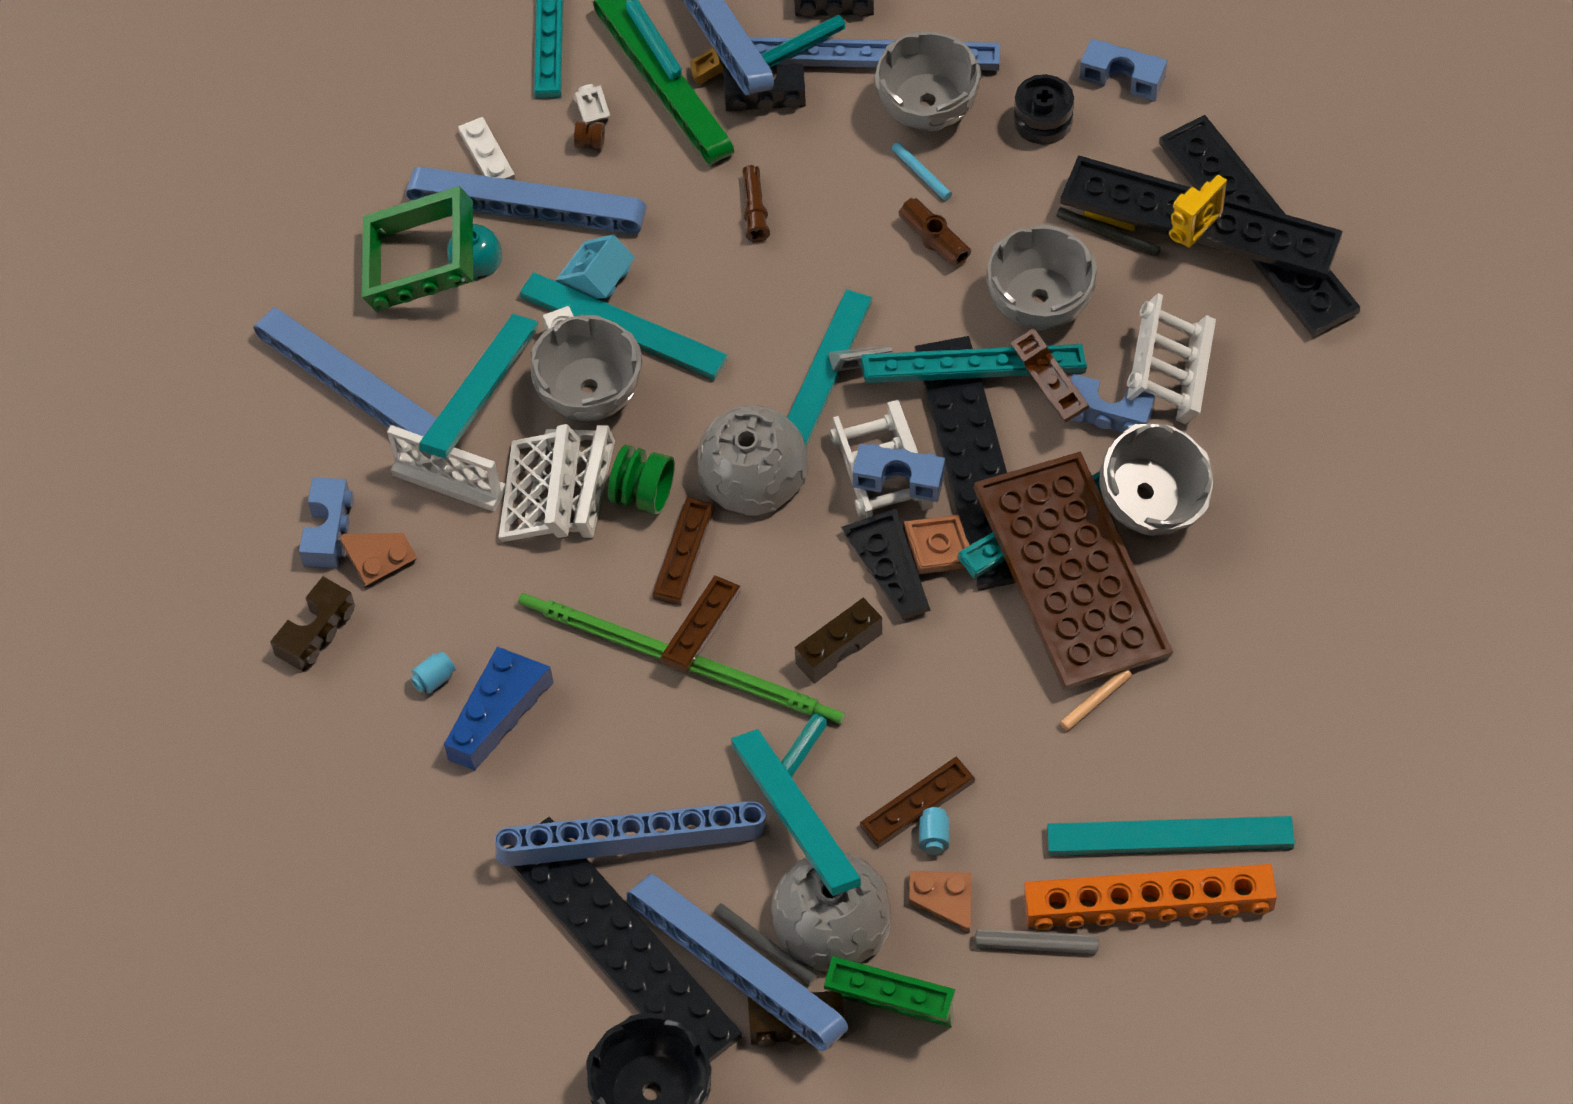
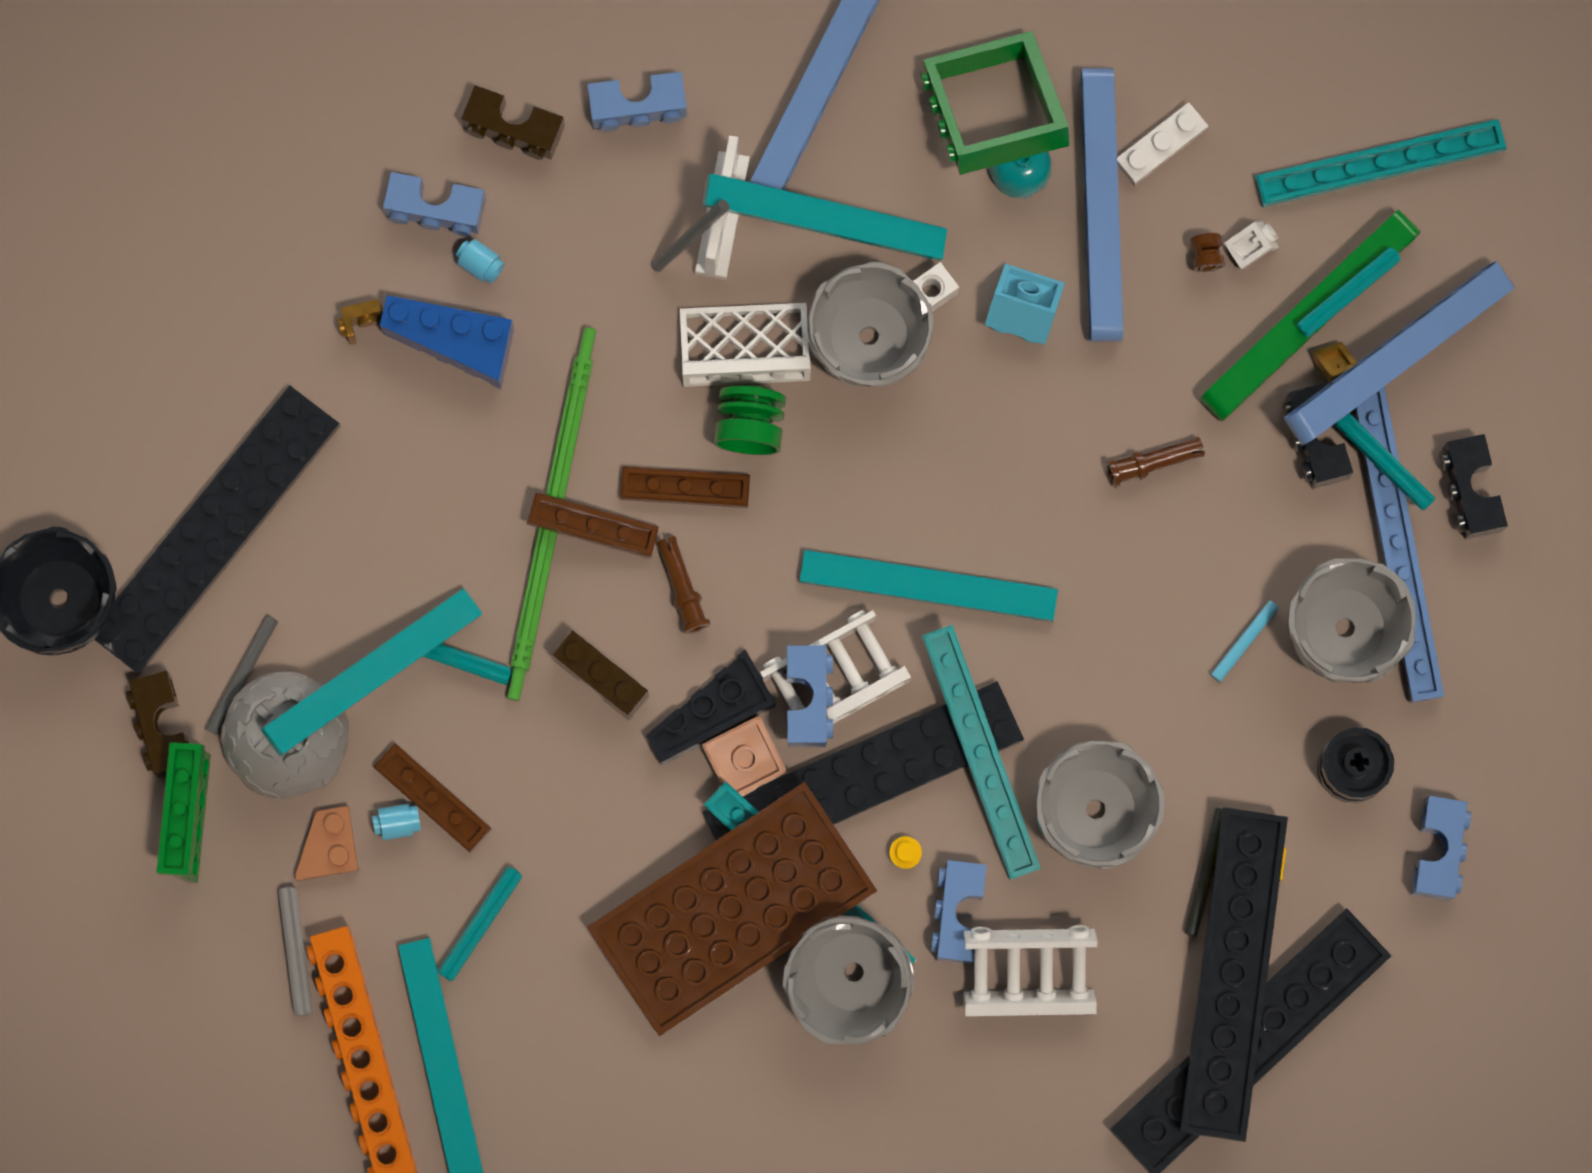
camera: 70 degrees right, 20 degrees up
(360, 721) = (460, 212): none -> medium blue arch
(377, 553) = (609, 166): nougat wing -> none
(454, 785) = (360, 314): none -> pearl gold bracket
(465, 485) = (690, 235): none -> dark grey bar
(559, 483) = (730, 333): white fence -> none
(619, 843) = (325, 494): medium blue beam -> none
(648, 335) = (959, 353): teal tile -> none
(737, 962) = (199, 650): medium blue beam -> none
(756, 476) = (808, 559): light grey piece -> none
(786, 563) = (686, 598): none -> reddish brown pin
(851, 358) = (968, 622): light grey slope -> none
(927, 223) = (1143, 688): reddish brown piece -> none
(1042, 781) = (480, 923): none -> teal axle
(1047, 439) = (905, 852): none -> yellow plate
(1049, 375) = (972, 841): reddish brown slope -> none
(1095, 699) = (588, 961): light nougat bar -> none
(1197, 211) = (1208, 961): yellow plate -> none

